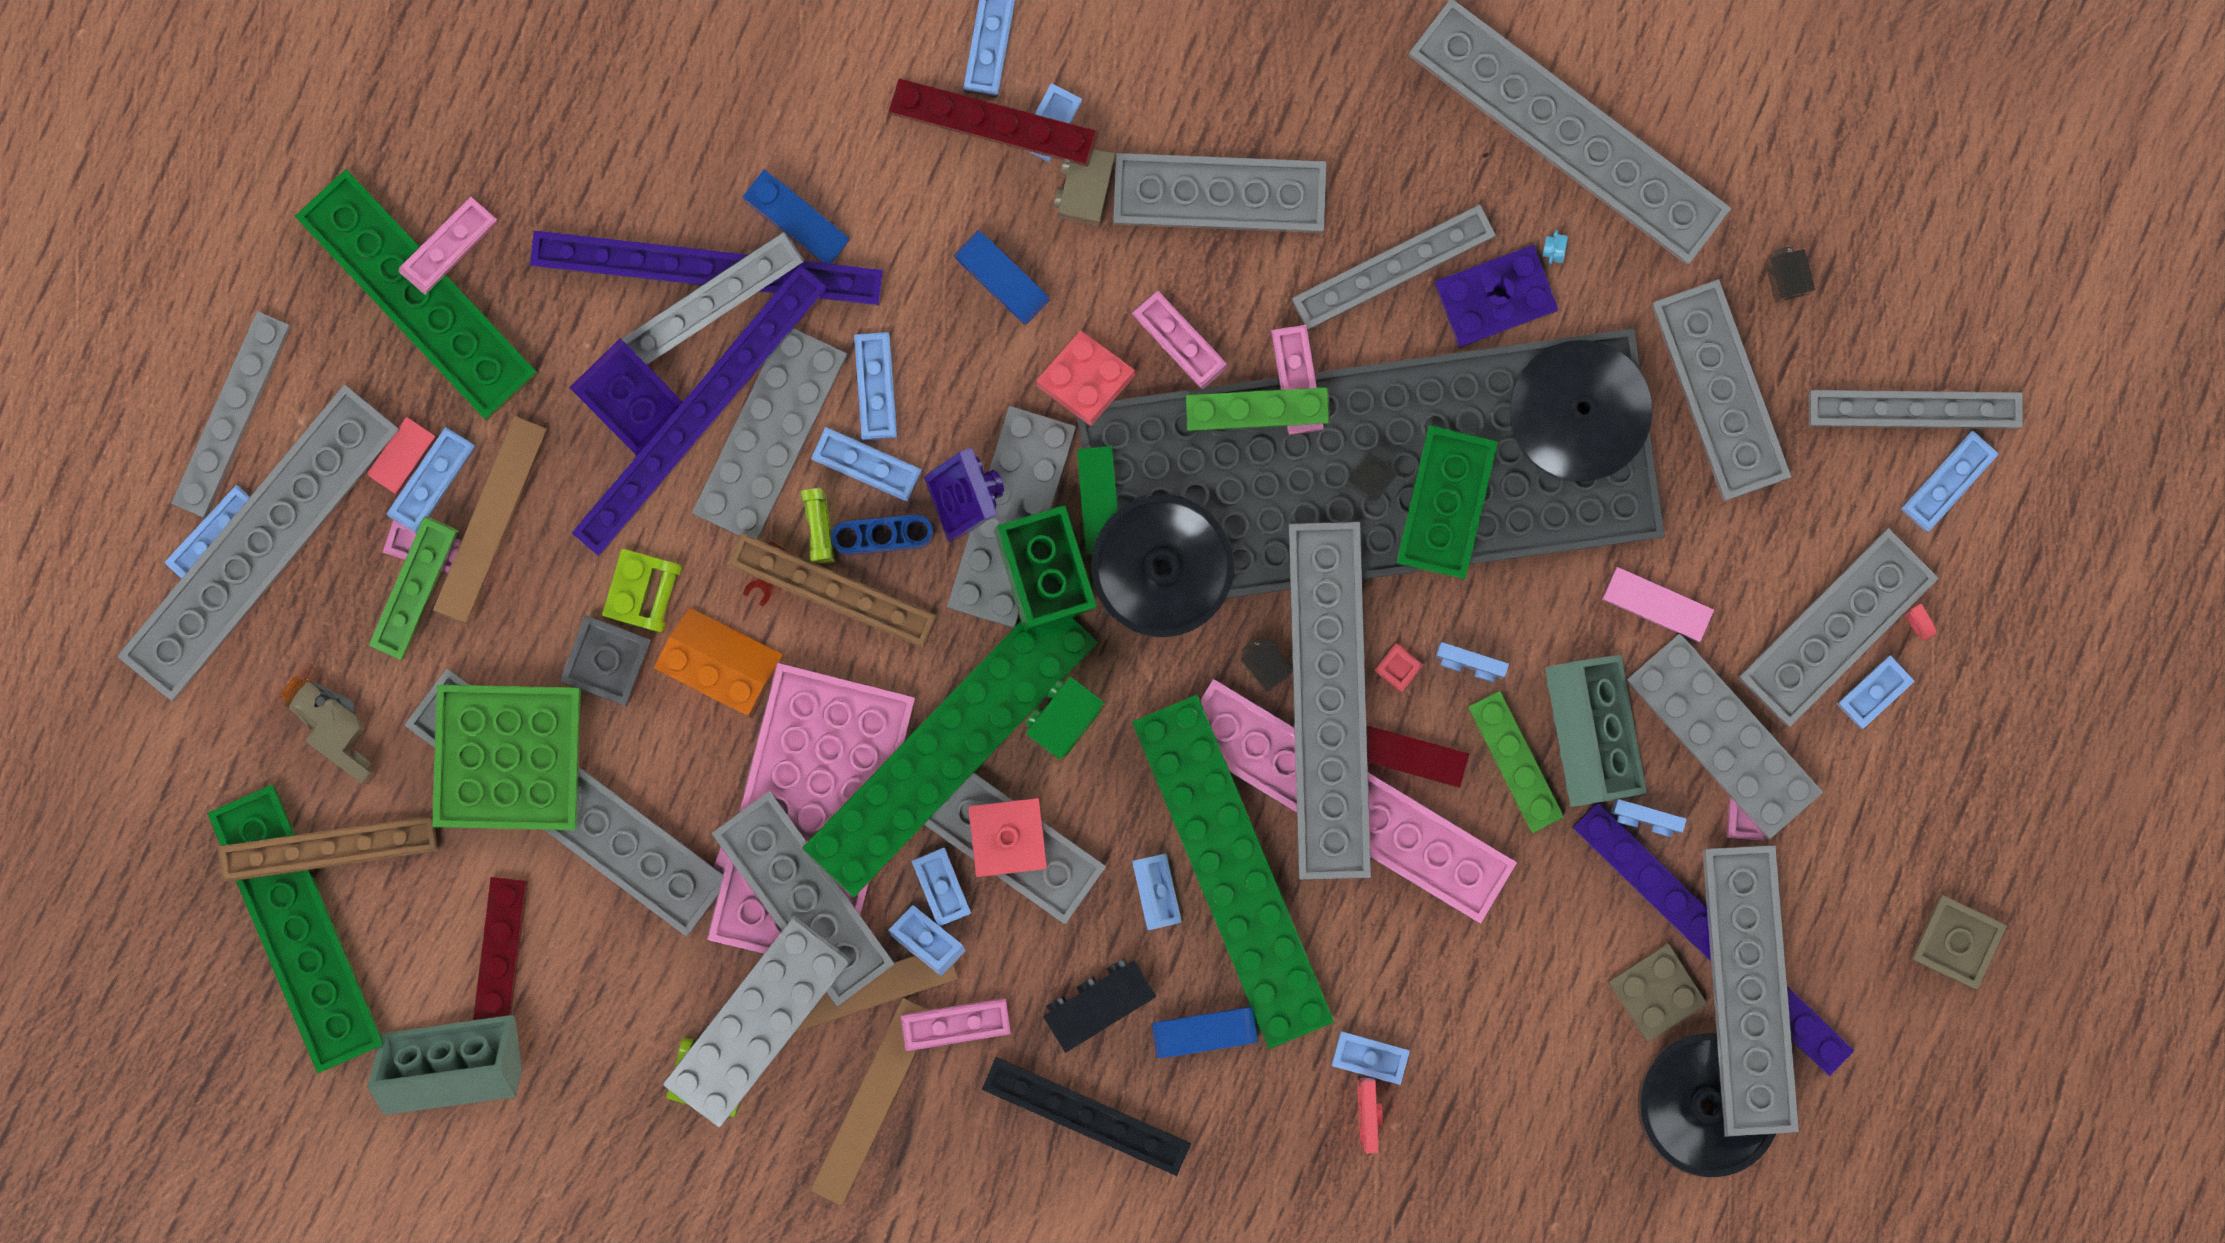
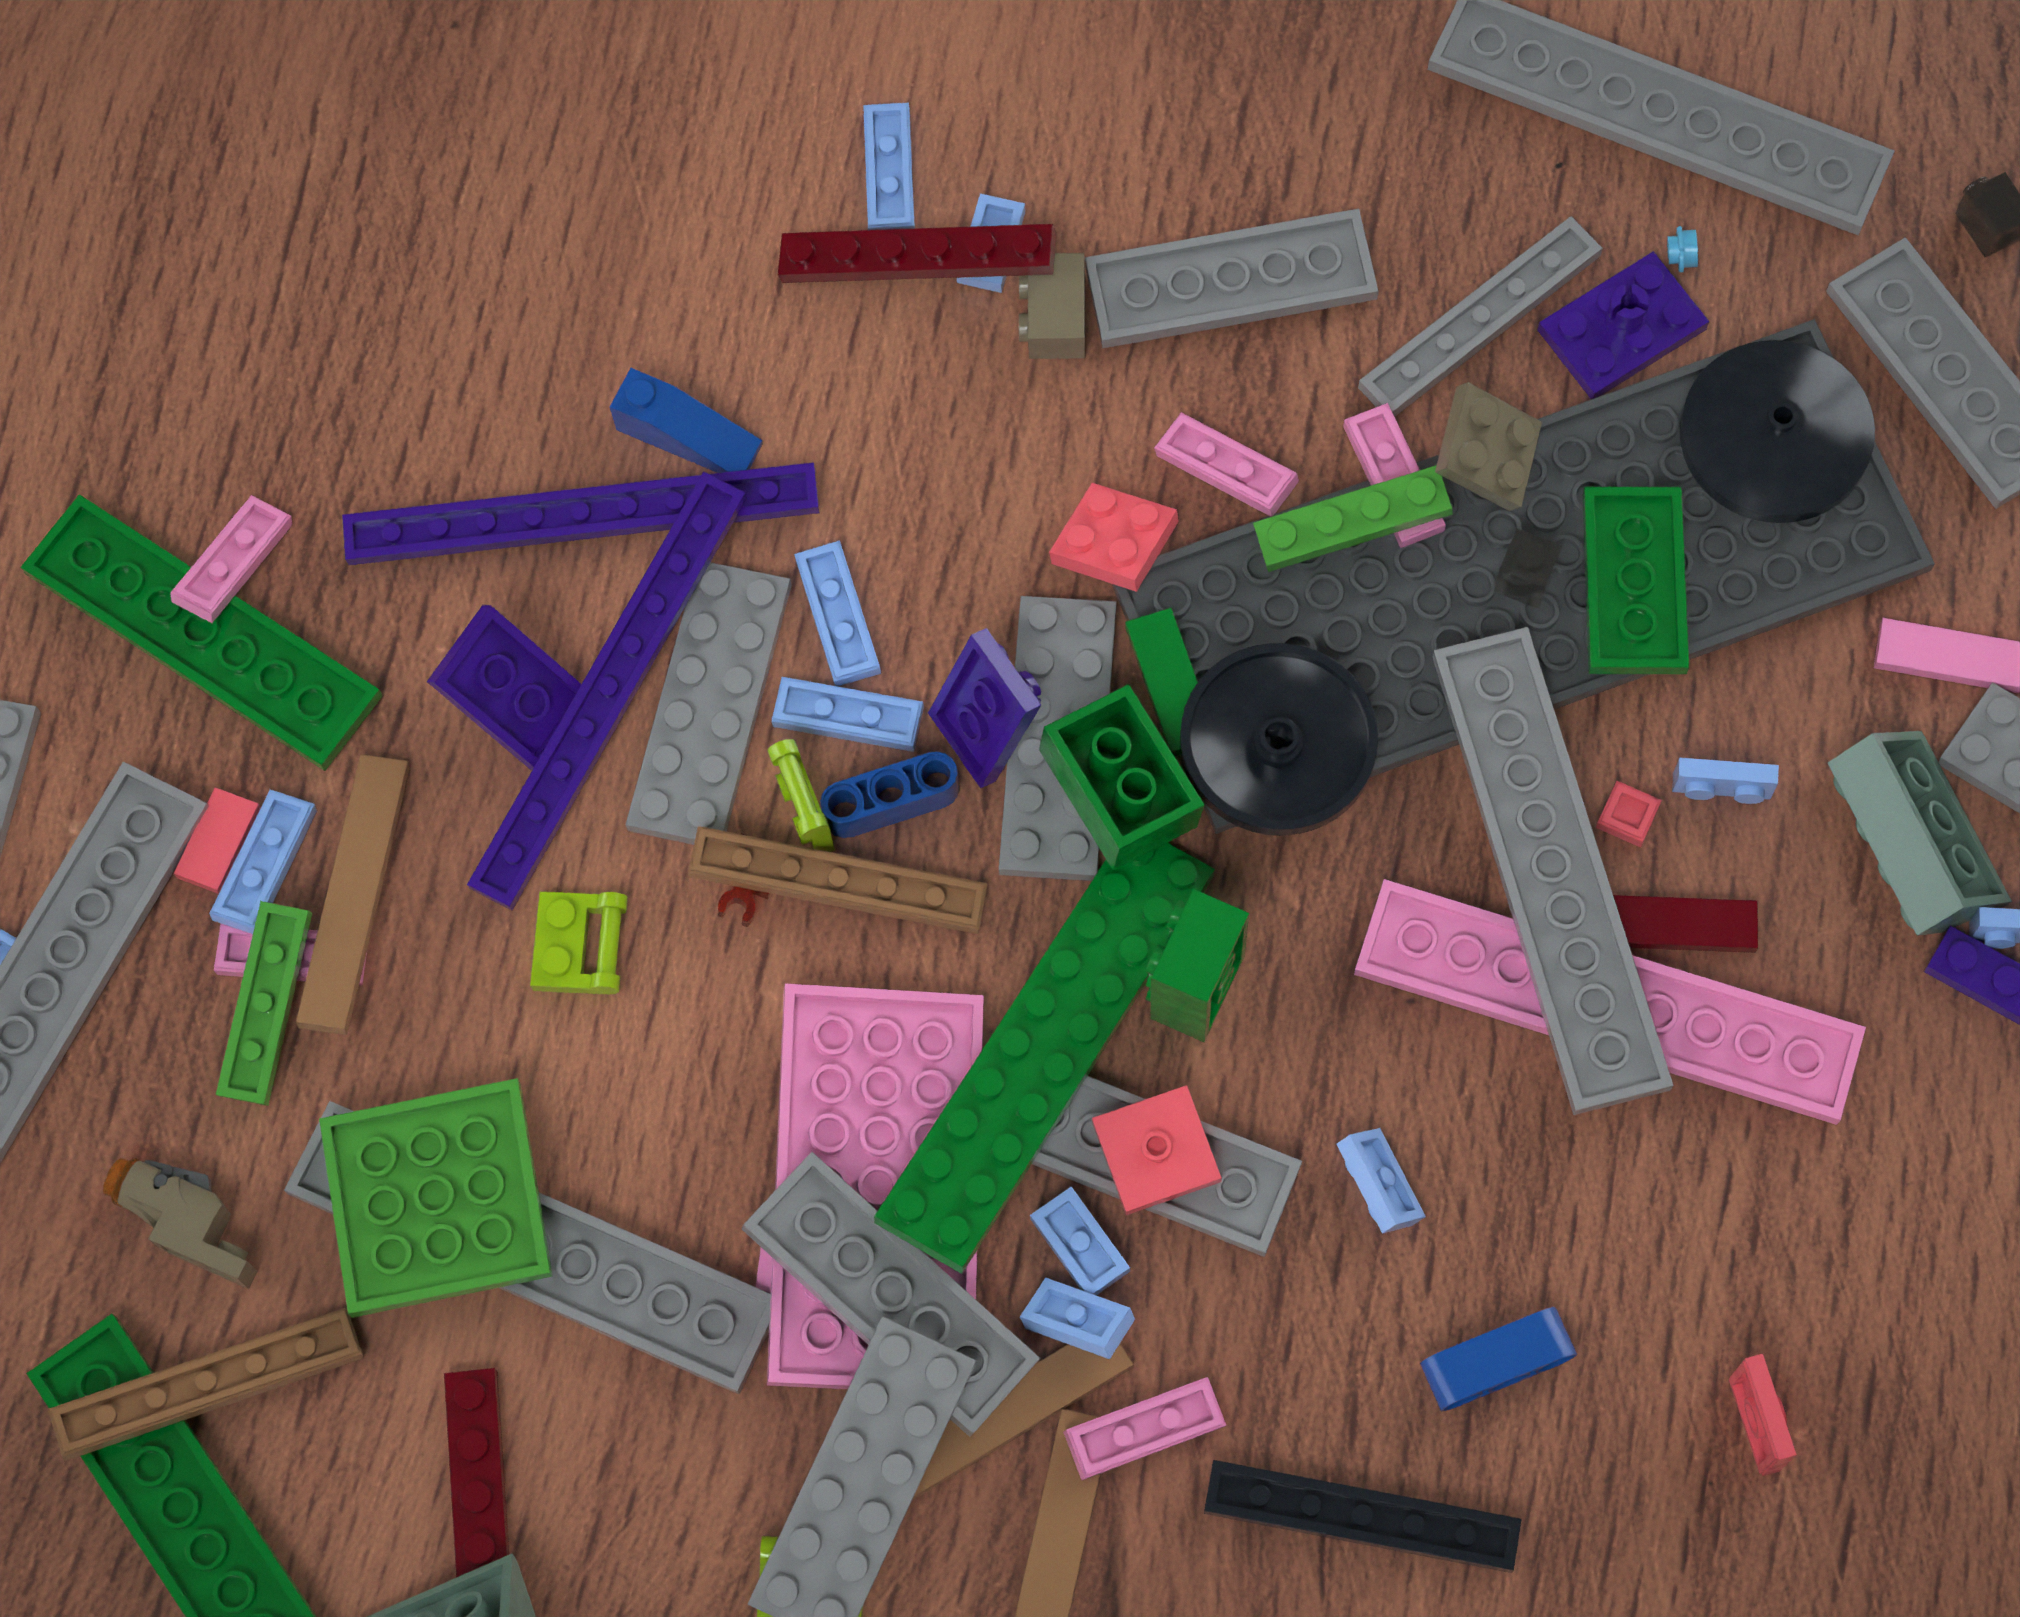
camera: 10 degrees left, 15 degrees down
(606, 660) = (549, 1042): flat silver plate -> none
(714, 298) = (603, 538): light grey plate -> none
(718, 662) = (702, 1013): orange slope -> none
(1001, 277) = (972, 440): blue beam -> none
(1098, 1004) = (1339, 1353): black brick -> none
(1233, 871) = (1481, 1130): green plate -> none
(1266, 663) = (1450, 845): clear smoke brick -> none
(1368, 379) = (1488, 446): none -> dark tan plate
(1370, 1058) = (1728, 1339): light blue plate -> none
(1515, 762) = (1822, 900): bright green plate -> none

